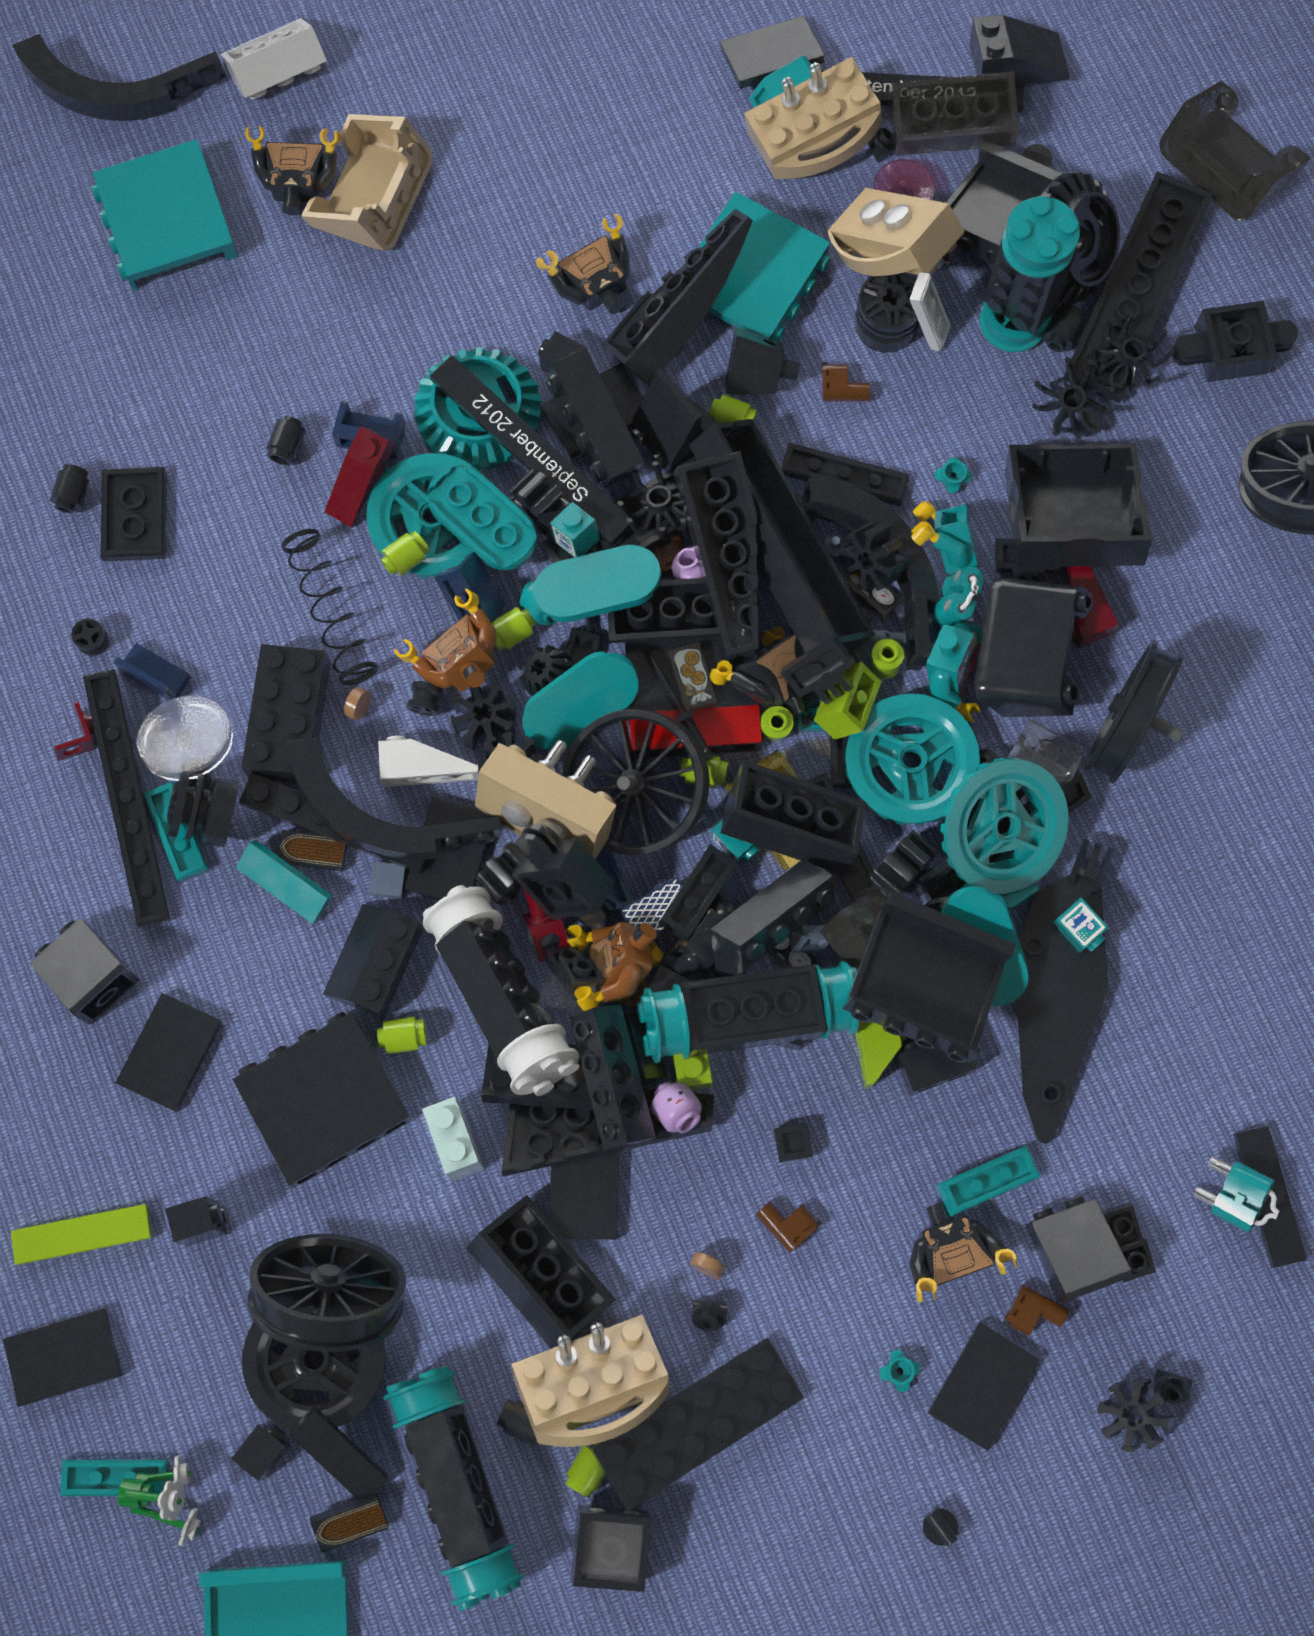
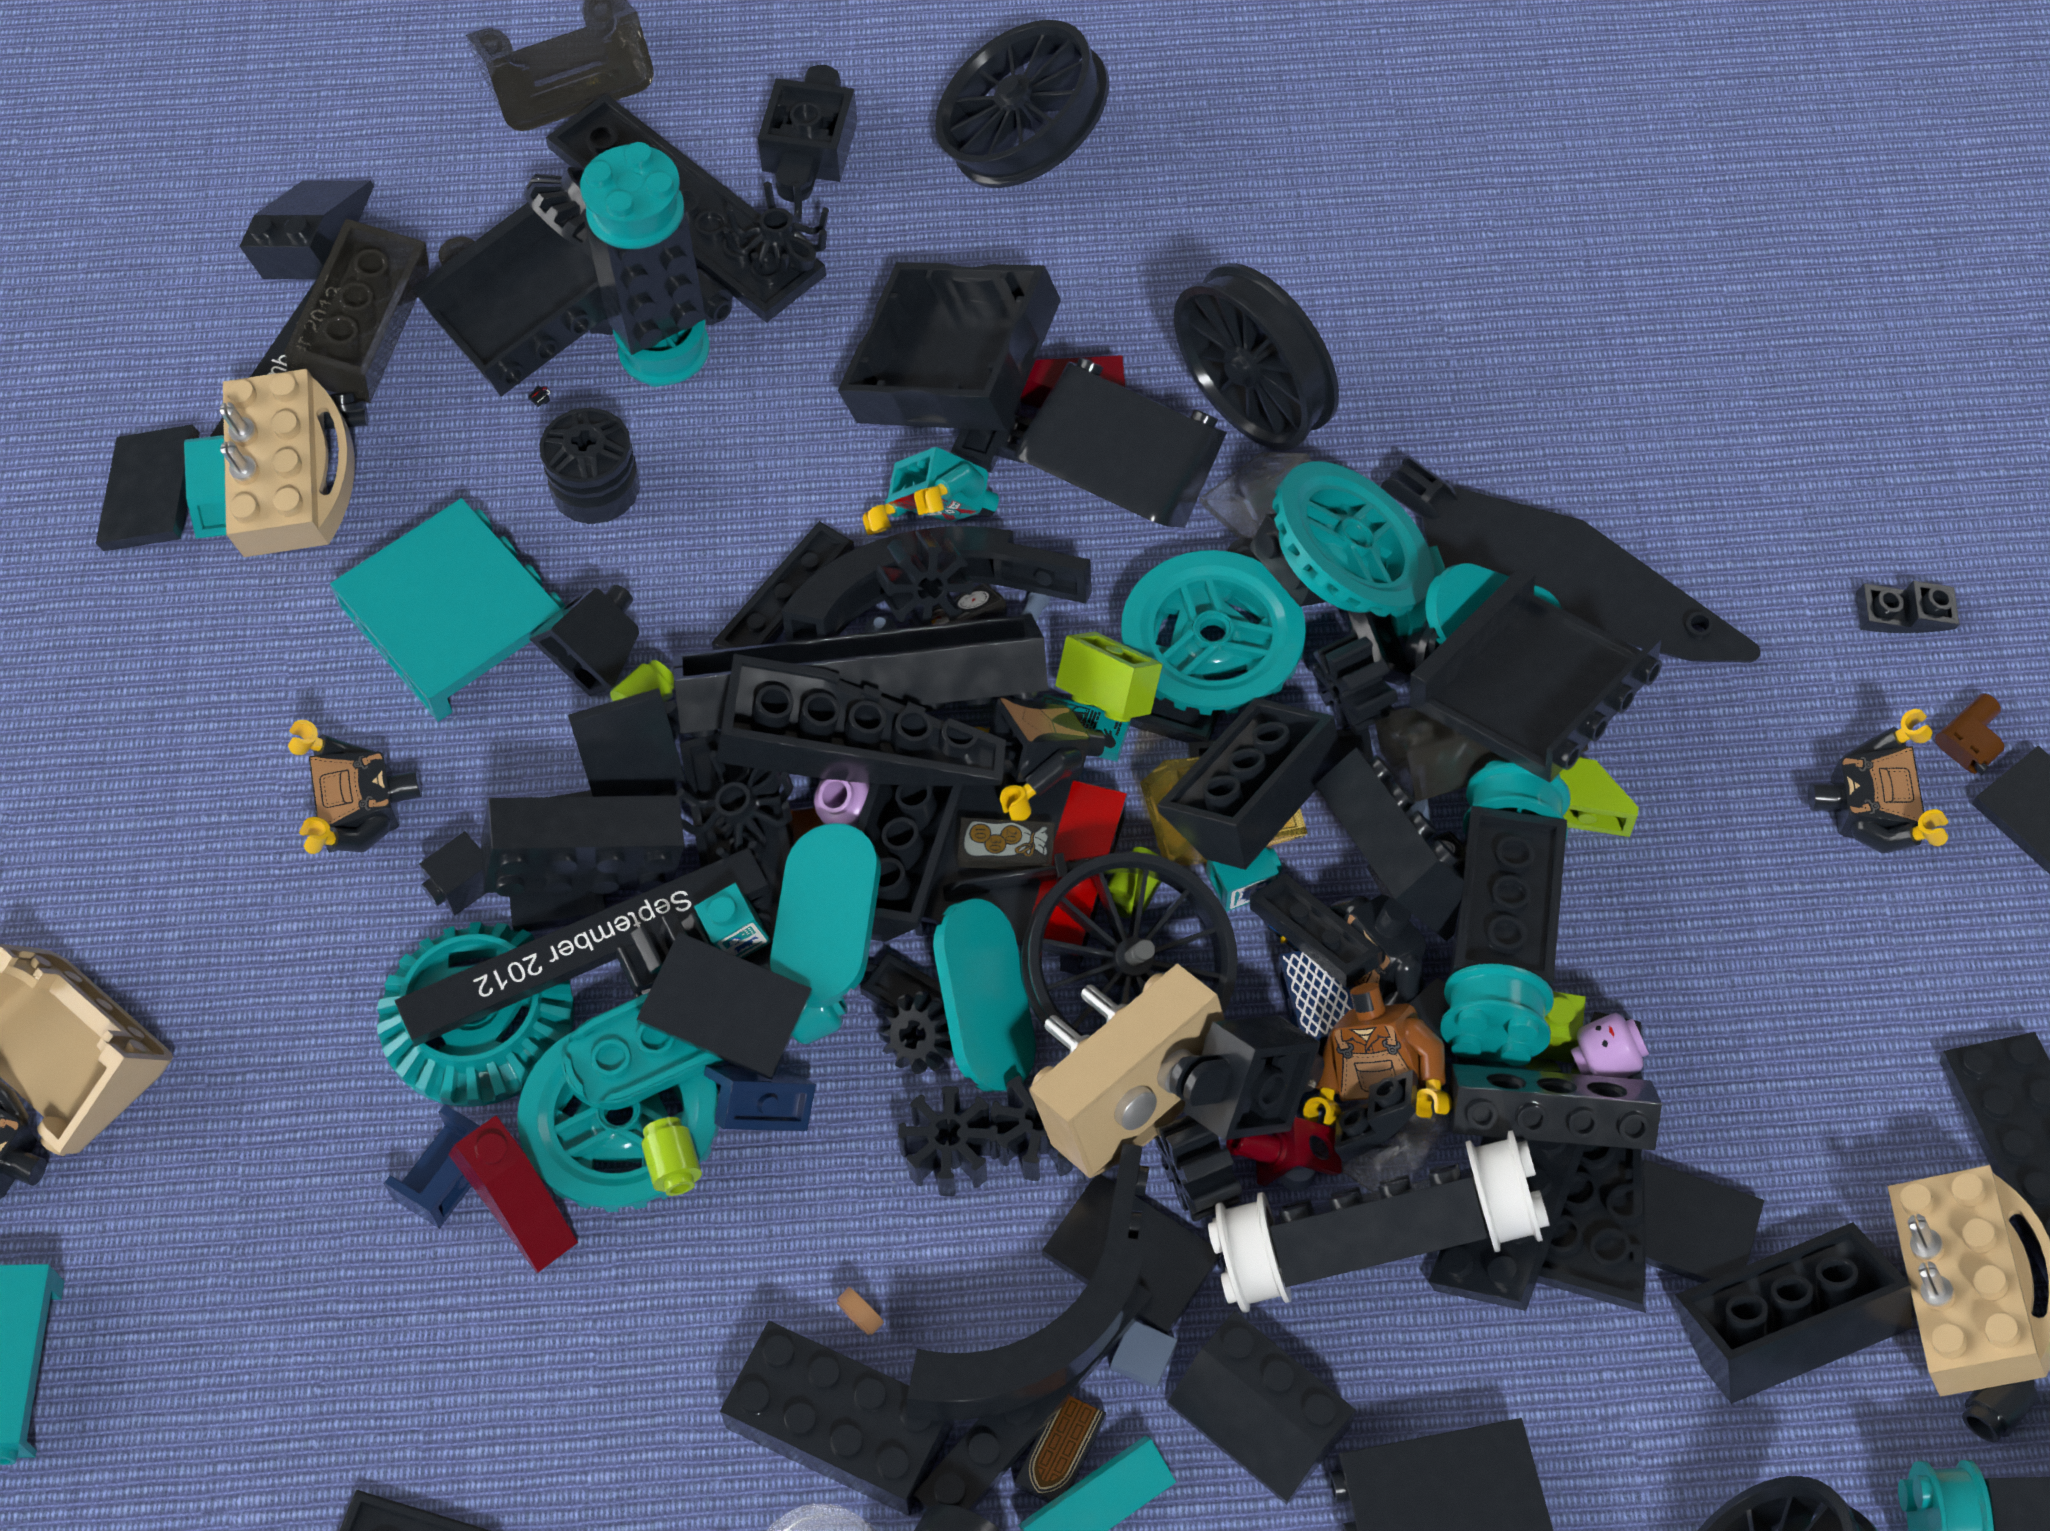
camera: 70 degrees left, 15 degrees down
(285, 440) = (402, 1290): black brick -> none
(351, 670) = (574, 1307): black piece -> none
(402, 1035) = (1389, 1398): lime brick -> none
(414, 763) = (983, 1253): white slope -> none
(424, 698) = (890, 1213): black wheel -> none
(453, 1139) = (1576, 1360): light aqua brick -> none
(461, 653) = (849, 1134): dark orange torso -> none
(509, 546) = (724, 1005): none -> black tile
(513, 628) = (832, 1065): lime brick -> none
(667, 319) = (467, 706): black wedge -> none
(707, 1265) = (1829, 1093): medium nougat tile -> none
(709, 1315) = (1896, 1115): black plate -> none
(776, 734) = (1107, 766): lime brick -> none
(789, 1230) = (1800, 975): reddish brown piece -> none
(792, 1143) = (1685, 937): black plate -> none
(821, 670) = (1067, 674): black hinge -> none
(836, 386) = (656, 563): reddish brown piece -> none
(886, 667) = (1063, 615): lime brick -> none
(894, 234) = (497, 411): tan piece -> none
(907, 176) = (422, 388): clear pink dish -> none
(909, 1368) = (2025, 899): teal plate -> none
(929, 1068) = (1631, 744): black brick -> none
(930, 311) = (617, 405): white tile -> none
(953, 663) = (1090, 534): teal torso -> none
(957, 467) = (841, 465): teal plate -> none
(958, 594) = (1018, 505): teal piece -> none
(988, 1181) = (1796, 728): teal tile -> none
(1073, 399) = (807, 310): black animal -> none
(1077, 1249) = (1916, 653): slope -> none
(1081, 926) = (1499, 515): brick -> none
(1241, 1196) = (1884, 466): teal piece -> none
(1279, 1234) = (1886, 446): black tile -> none

